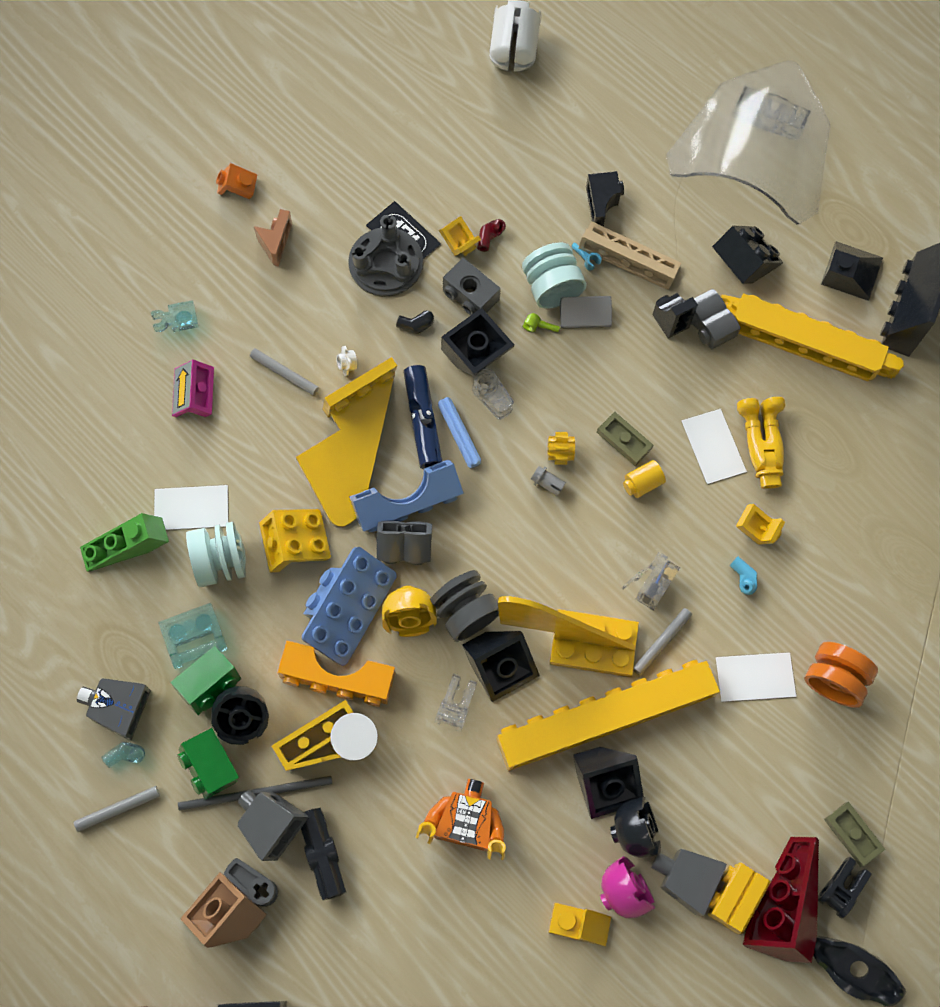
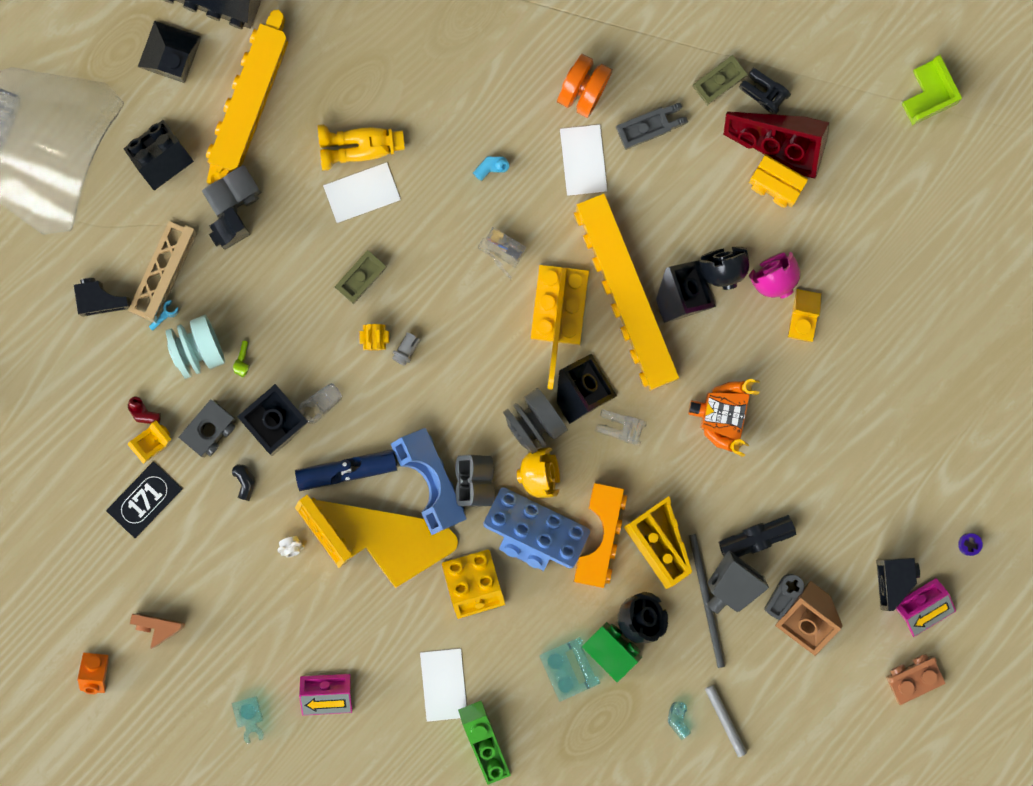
camera: 90 degrees left, 15 degrees up
(115, 705) = (636, 732): dark grey torso -> none
(207, 764) = (686, 643): green brick -> none
(216, 554) = (495, 653): light aqua wheel -> none
(284, 372) = (302, 607): light grey bar -> none
(354, 736) = (660, 514): white sticker -> none
(385, 260) = (176, 515): dark grey piece -> none
(459, 432) = (359, 434): light blue axle -> none
(586, 312) = (228, 315): light grey slope -> none
(644, 479) = (402, 259): yellow brick -> none
(662, 641) = (555, 243): light grey bar -> none
(690, 878) = (763, 221): dark grey torso -> none
(759, 525) = (443, 151): yellow bracket -> none
(797, 750) = (649, 126): none -> dark grey hinge
(877, 984) = (841, 67): black piece -> none

